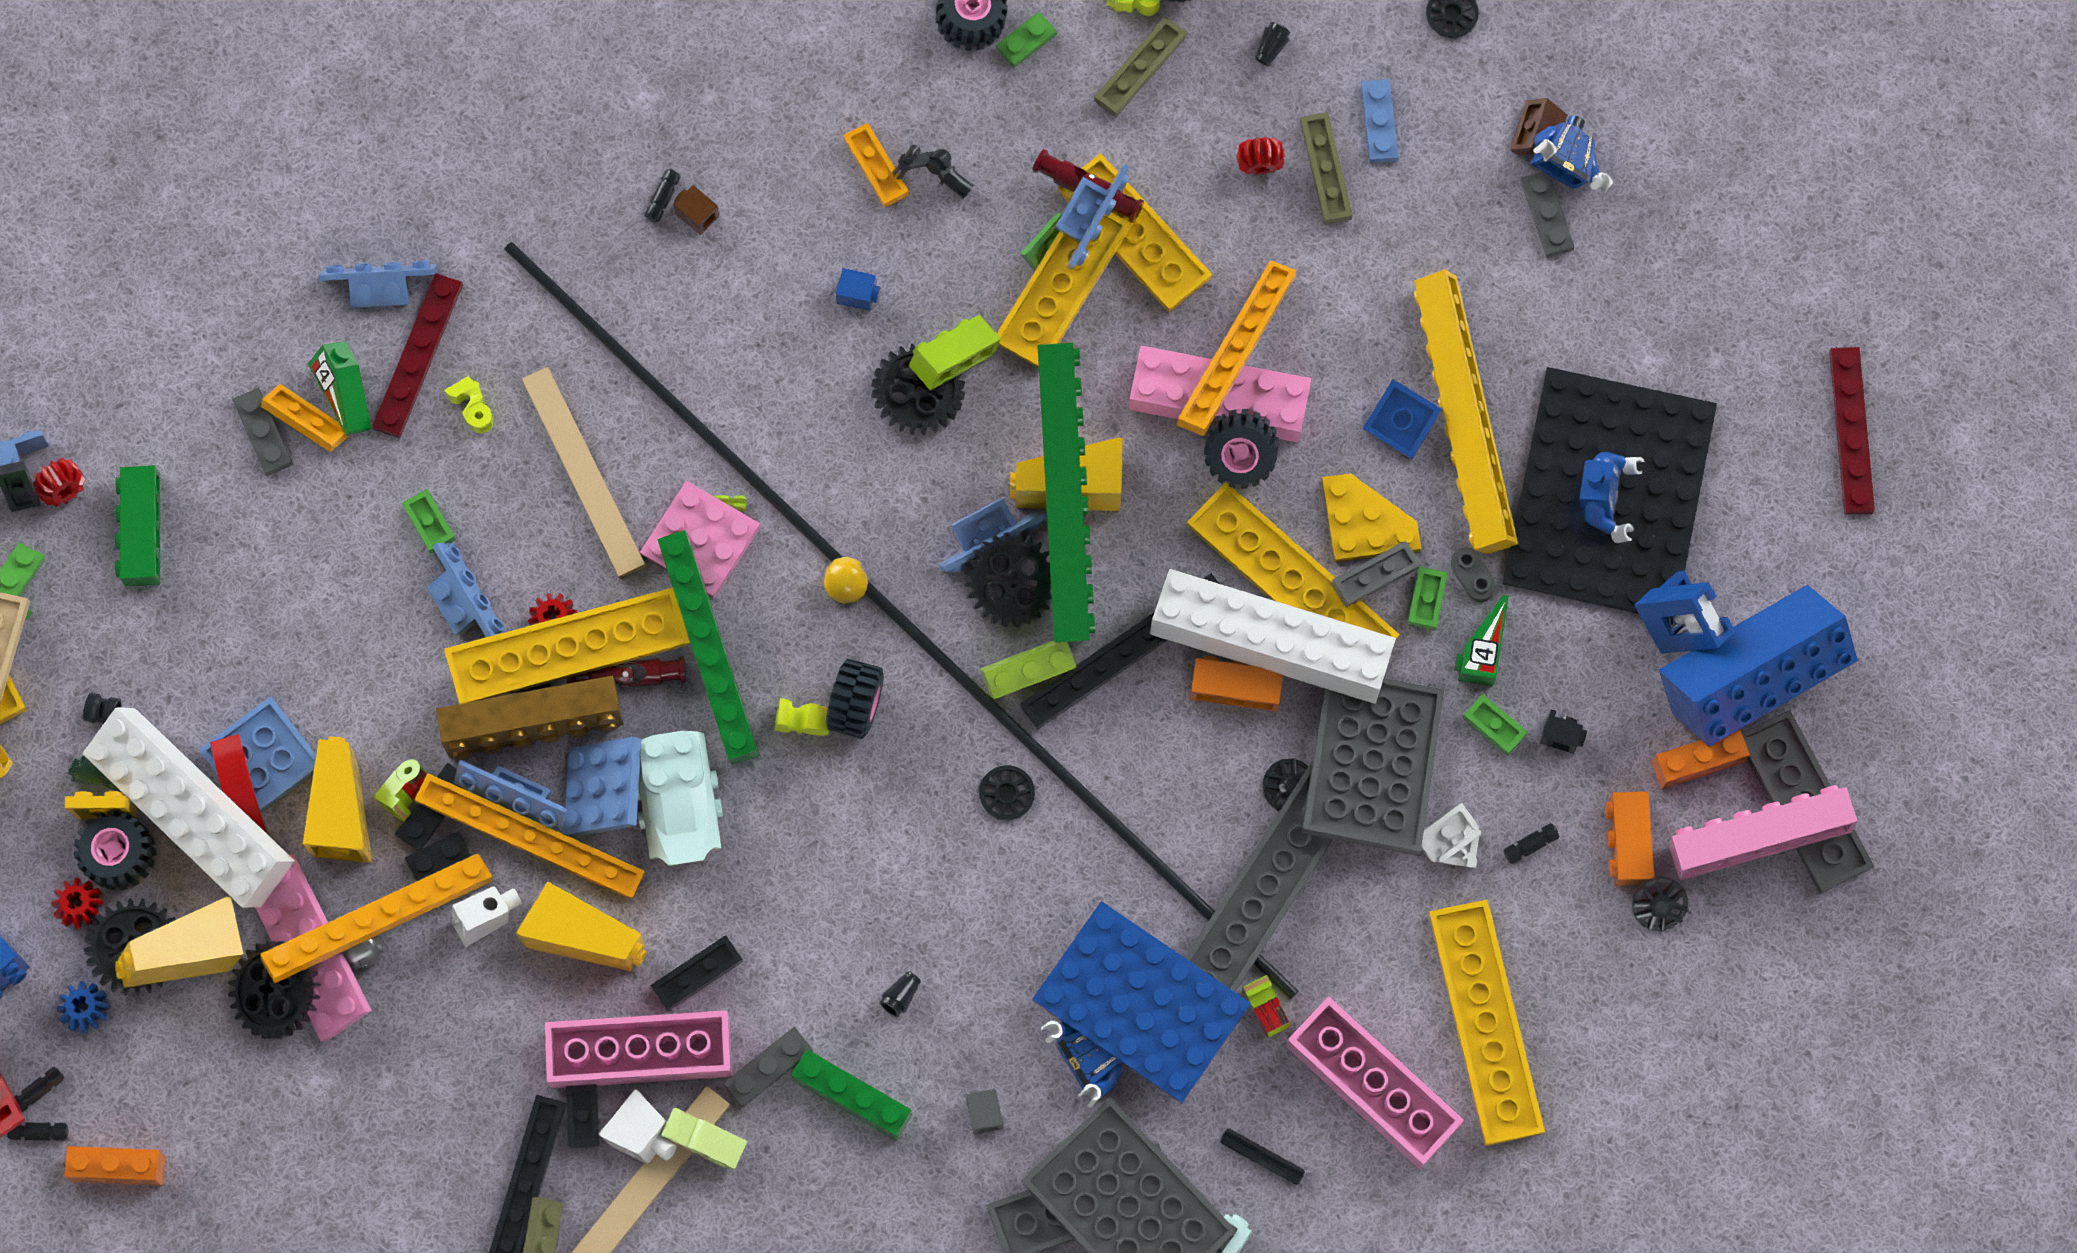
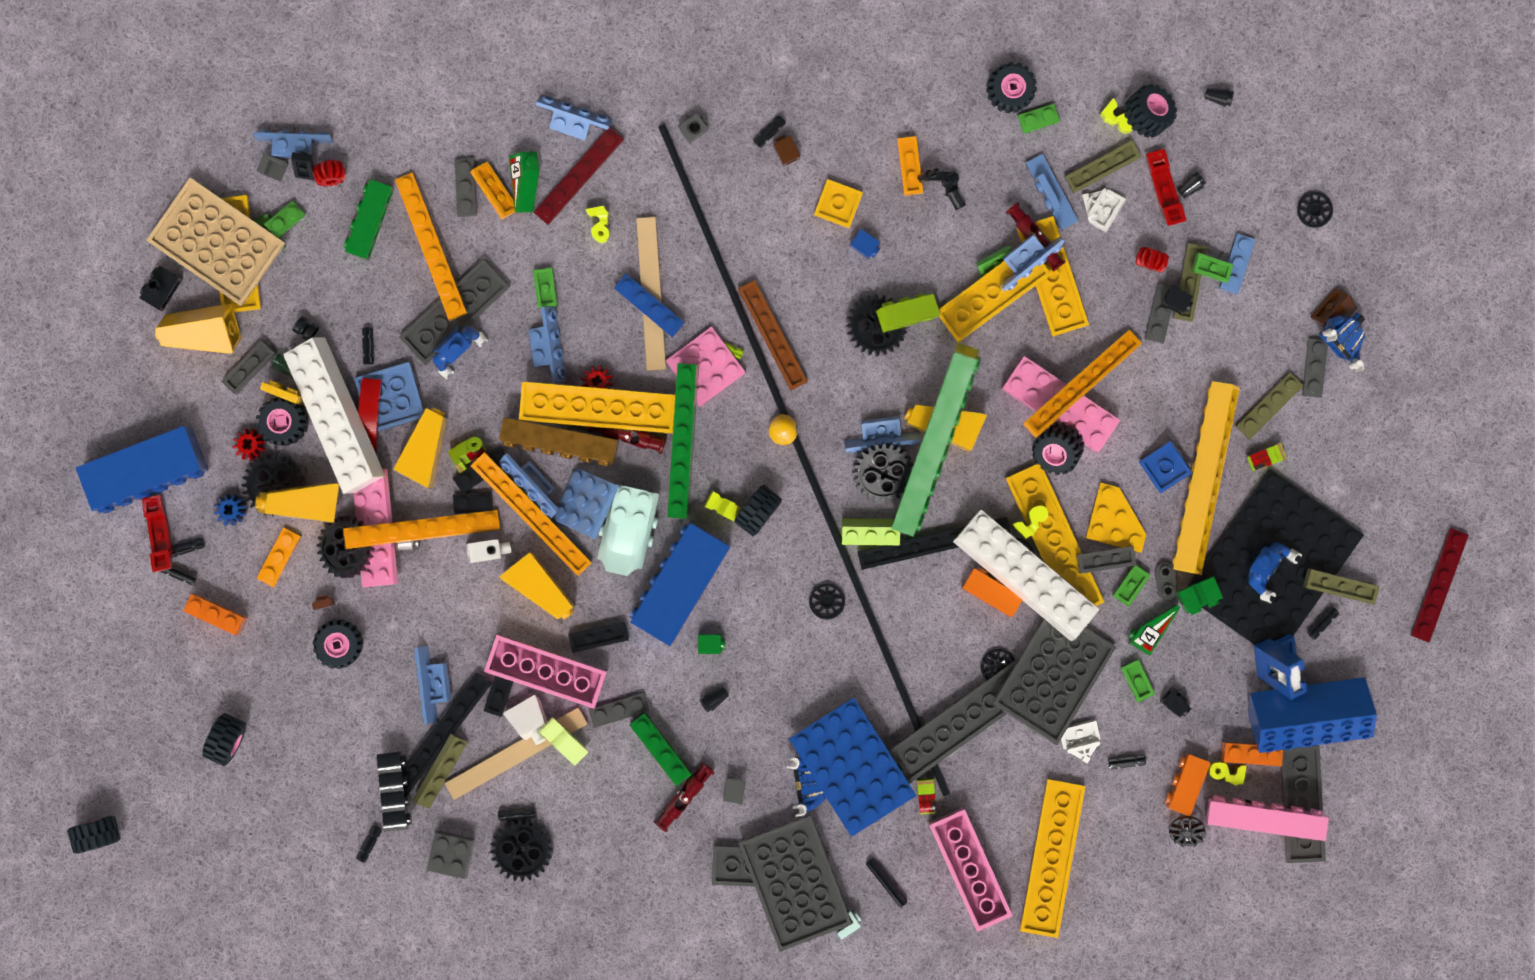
camera: 20 degrees right, 15 degrees up
(38, 796) = (248, 367): none -> dark grey plate
(180, 1048) = (278, 557): none -> light orange plate
(202, 699) = (367, 343): none -> black axle
(243, 527) = (431, 246): none -> light orange plate
(270, 1085) = (322, 602): none -> copper plate
(310, 604) = (478, 291): none -> dark grey plate
(314, 1135) = (337, 644): none -> black wheel
(326, 646) = (454, 346): none -> blue torso
(478, 1137) = (432, 684): none -> medium blue bracket
(550, 240) = (693, 136): none -> dark grey brick
(586, 486) = (649, 305): none -> blue plate
(778, 460) = (772, 335): none -> dark orange plate
(783, 846) = (679, 584): none -> blue brick
(797, 251) = (838, 203): none -> yellow plate
(863, 917) = (710, 643): none -> green brick
(919, 1135) = (690, 789): none -> dark red piece
(1085, 125) = (1053, 195): none -> medium blue bracket
(1164, 119) = (1103, 208): none -> white slope
(1235, 60) = (1164, 188): none -> red slope
(1251, 553) = (1035, 515): none -> neon yellow leg
(1304, 224) = (1159, 317): none -> dark grey plate
(1319, 192) = (1177, 300): none -> black brick
(1347, 134) = (1212, 268): none -> bright green plate
(1508, 287) = (1269, 406): none -> olive plate
(1527, 568) = (1198, 595): none -> green brick
(1536, 353) = (1266, 457): none -> leg
(1668, 800) = (1220, 770): none -> neon yellow leg
(1716, 543) = (1323, 622): none -> black axle
(1717, 481) = (1341, 586): none -> olive plate

